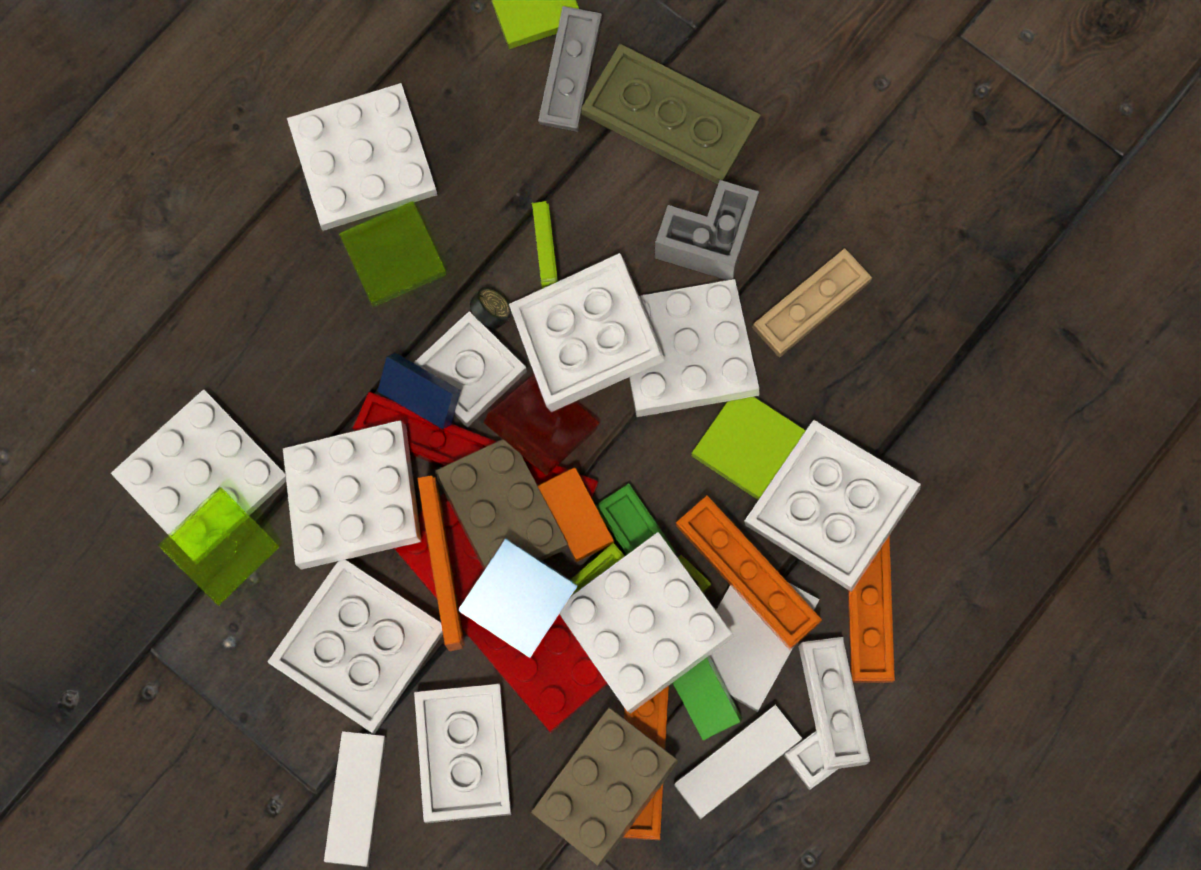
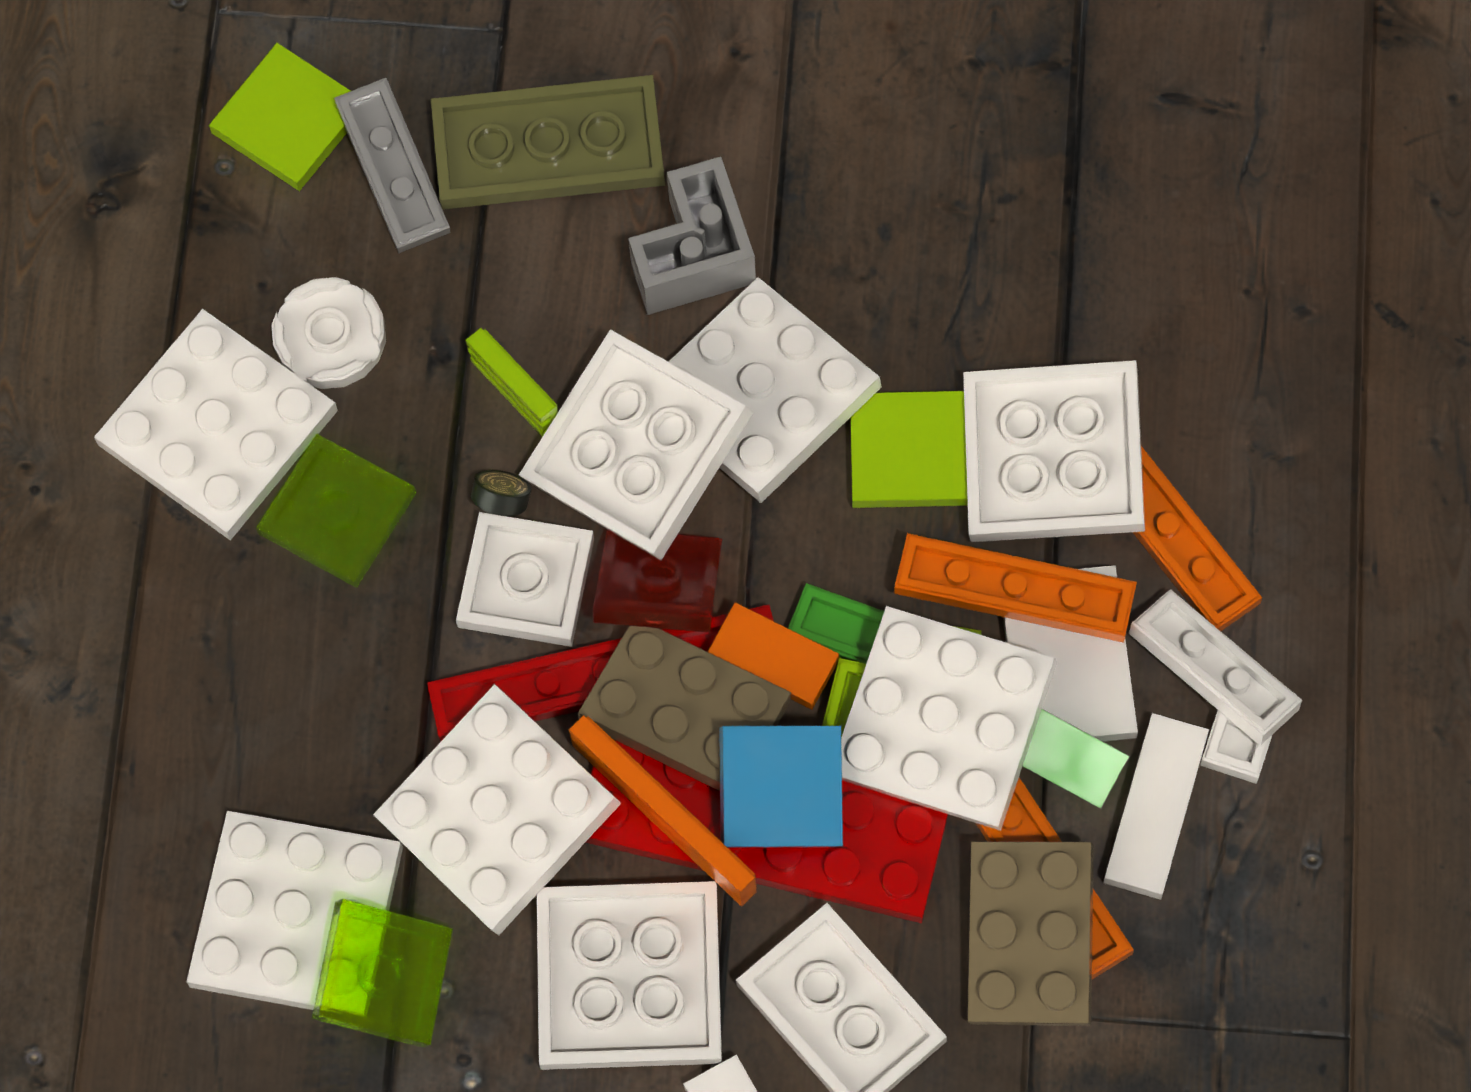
camera: 35 degrees left, 5 degrees down
(419, 390) = (488, 639): dark blue tile -> none
(464, 145) = (329, 332): none -> white tile
(812, 302) = (863, 248): tan tile -> none

